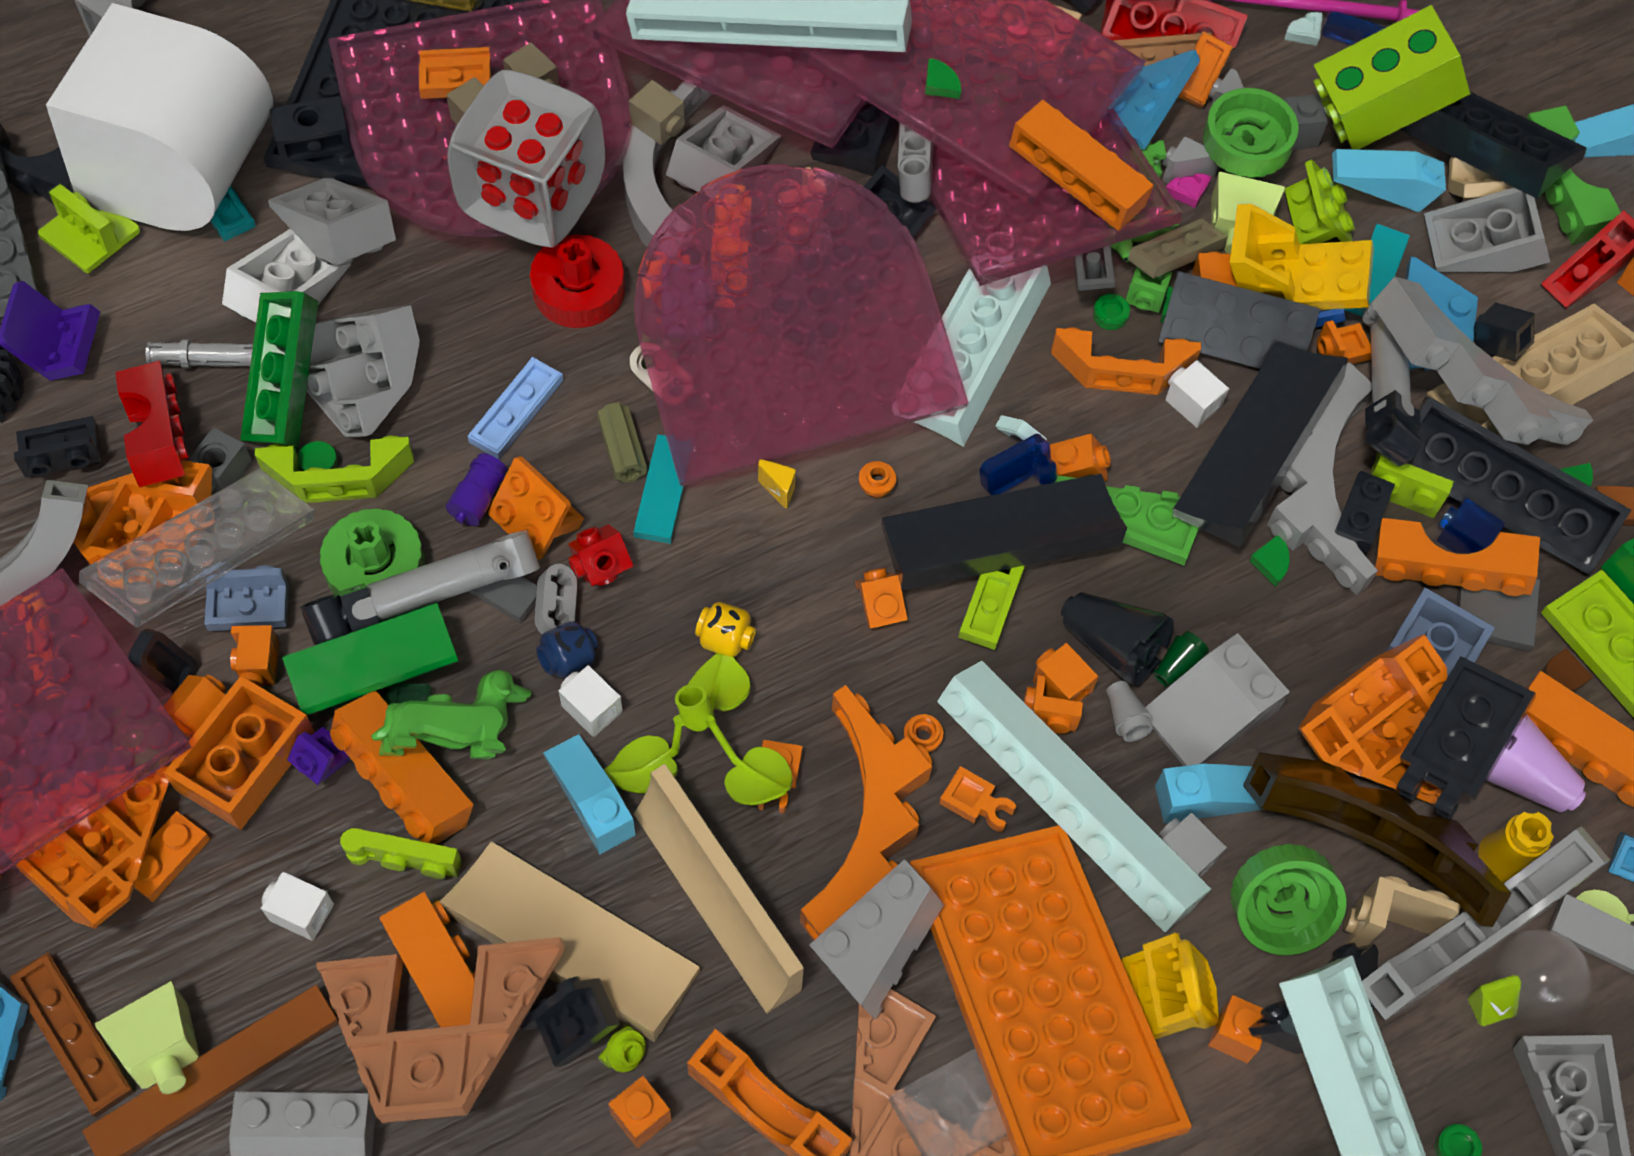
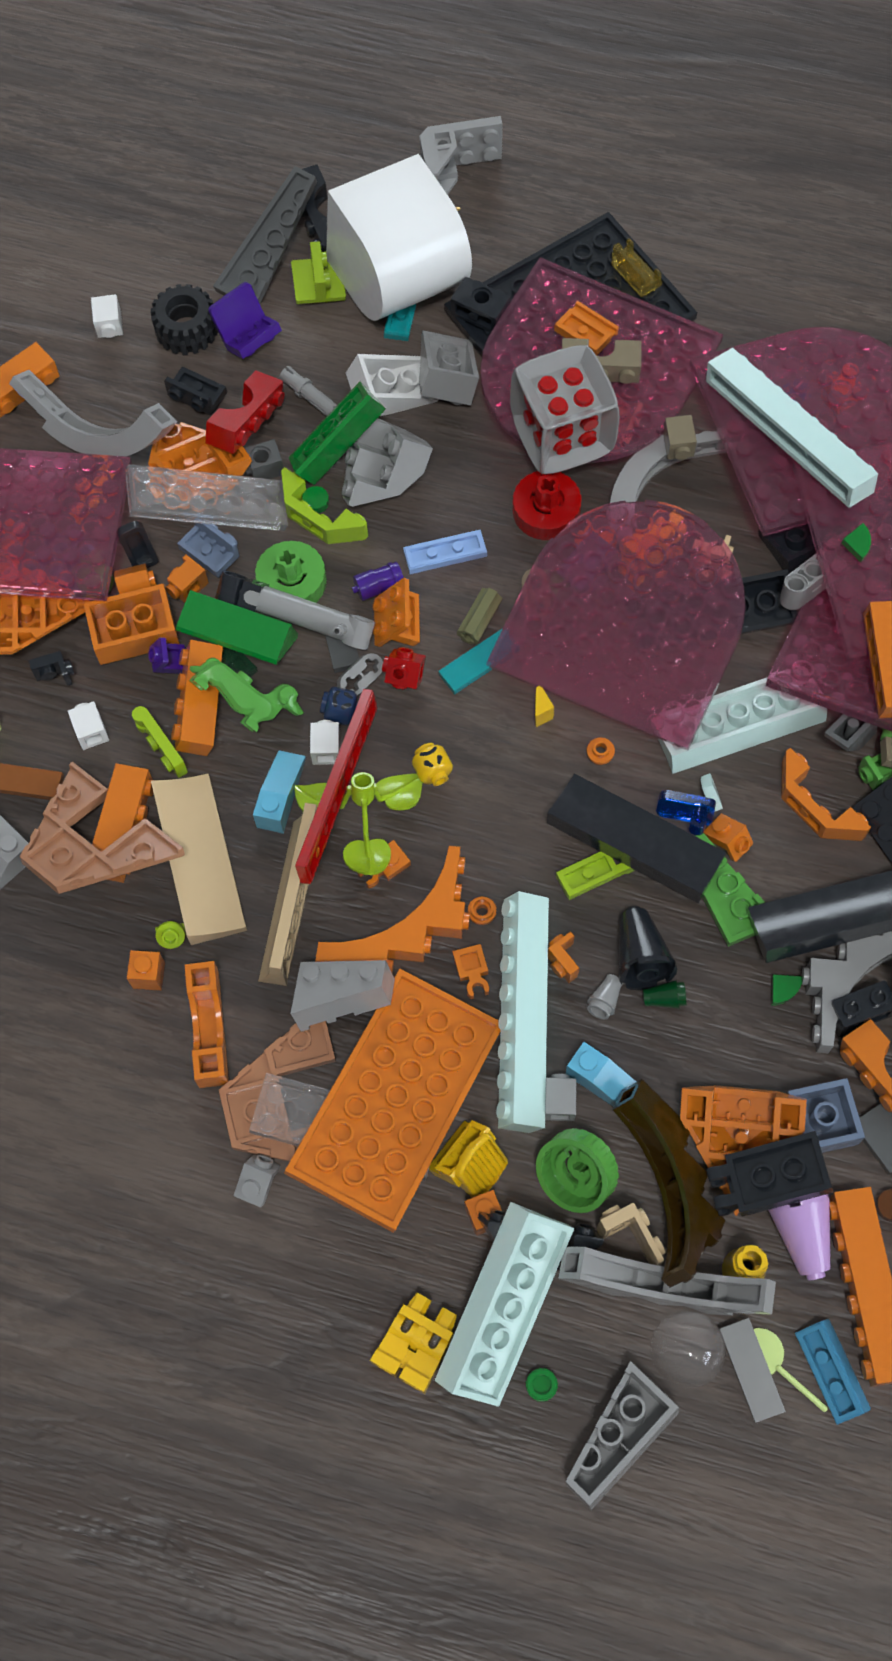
camera: 50 degrees right, 5 degrees up
(168, 855) = (67, 642): orange plate -> none
(183, 878) = (50, 666): none -> black bracket
(572, 1018) = (158, 894): black bracket -> none
(663, 732) = (336, 787): none -> red tile
(719, 147) = (704, 489): light grey slope -> none
(881, 598) = (532, 818): orange bracket -> none
(1065, 674) = (589, 947): orange brick -> none
(1111, 312) = (843, 766): green tile -> none
(1196, 393) = (840, 855): white brick -> none
(1216, 702) = (659, 1036): light grey slope -> none
(1495, 1000) = (645, 1333): lime slope -> none

